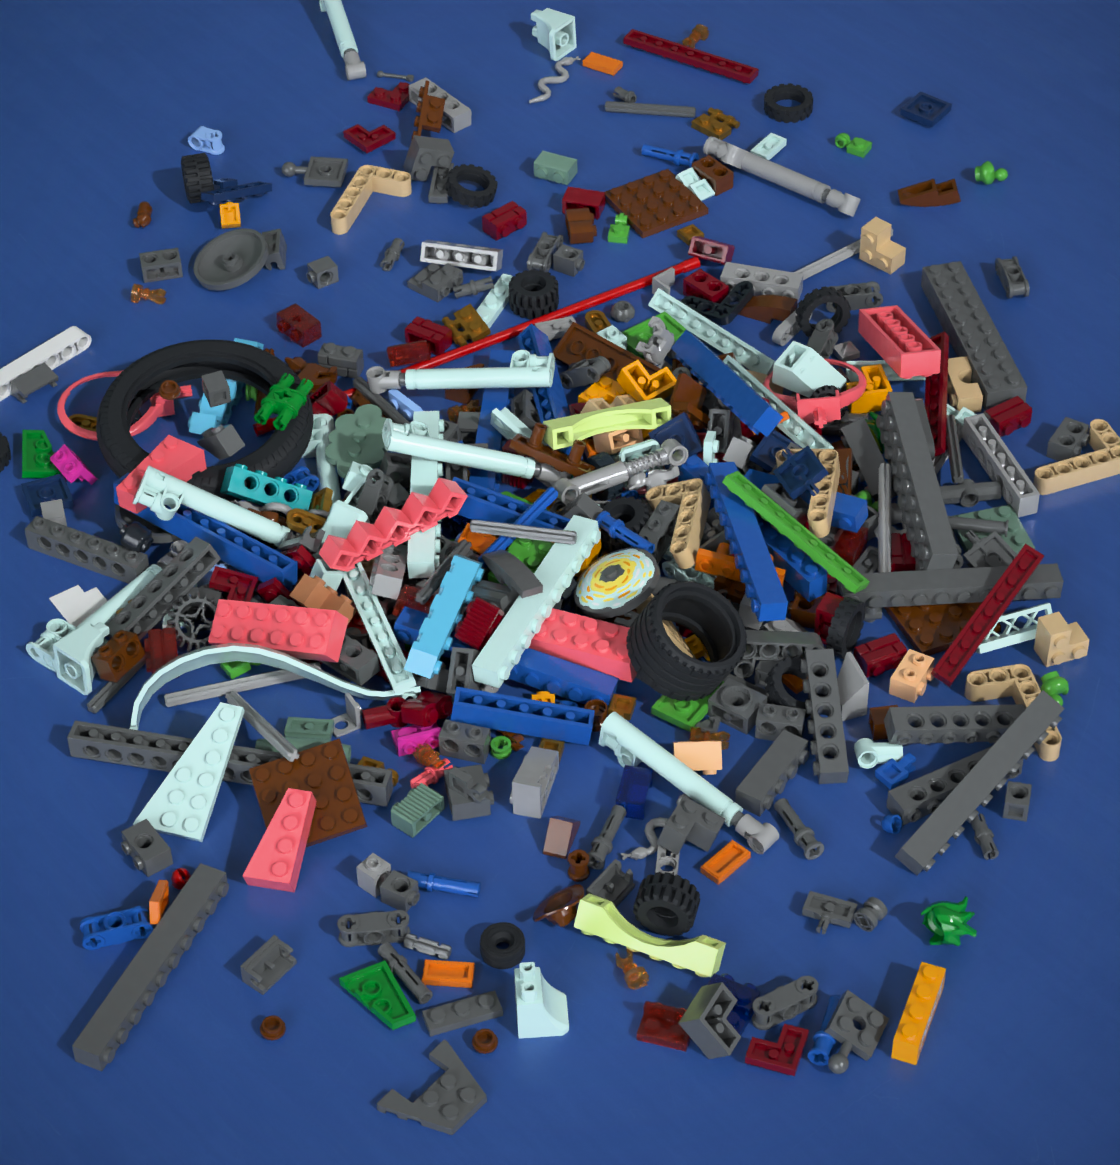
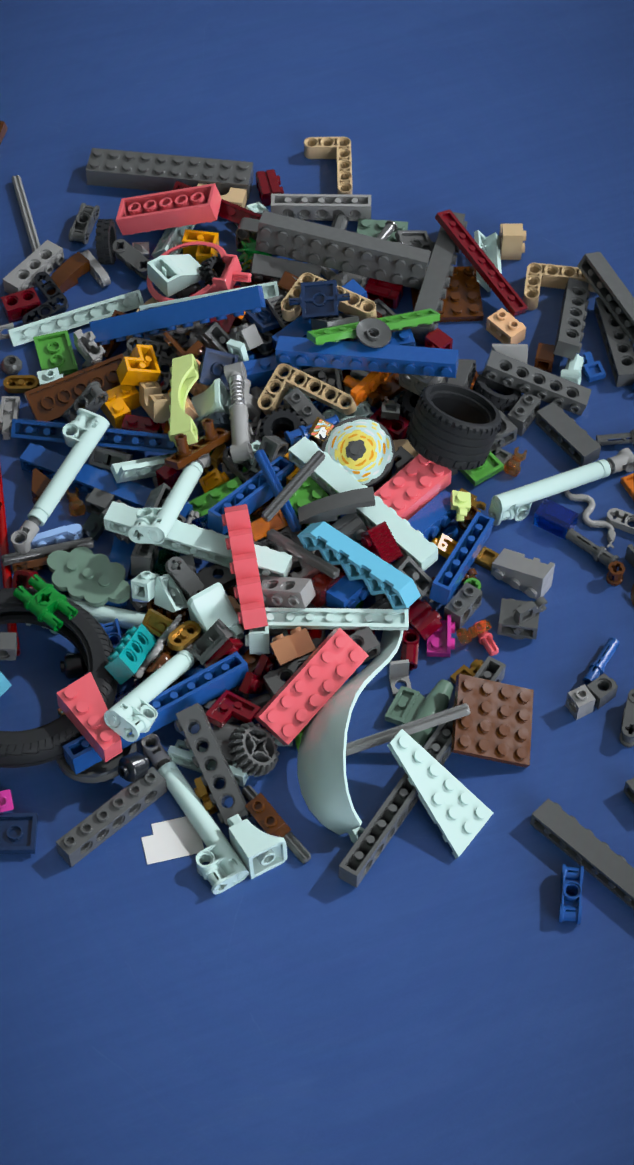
camera: 70 degrees left, 10 degrees up
(54, 511) = (49, 832): light grey brick -> none
(146, 848) = (498, 844): dark grey brick -> none
(159, 901) = (561, 854): orange tile -> none
(162, 647) = (275, 785): clear red brick -> none
(177, 880) = (530, 840): red hinge -> none
(221, 441) = (73, 661): dark grey slope -> none
(283, 845) = (536, 748): coral wedge -> none
(417, 809) = (521, 657): sand green brick -> none
(560, 836) = (578, 575): slope -> none
(599, 692) = (461, 503): none -> yellowish green plate
(624, 536) = (321, 429): none -> tile
(692, 824) = (610, 495): dark grey brick -> none
(700, 755) = (538, 466): light nougat brick -> none
(774, 519) = (373, 333): none -> dark grey dish
(846, 626) = (461, 336): black tyre -> none
(878, 248) = (41, 188): tan brick -> none
(880, 655) = (478, 338): dark red brick -> none
(884, 518) = (371, 292): light grey axle -> none
(1012, 277) = (117, 131): dark grey piece -> none
(1054, 686) = (550, 257): bright green animal -> none
(1068, 440) = (311, 166): dark grey brick -> none

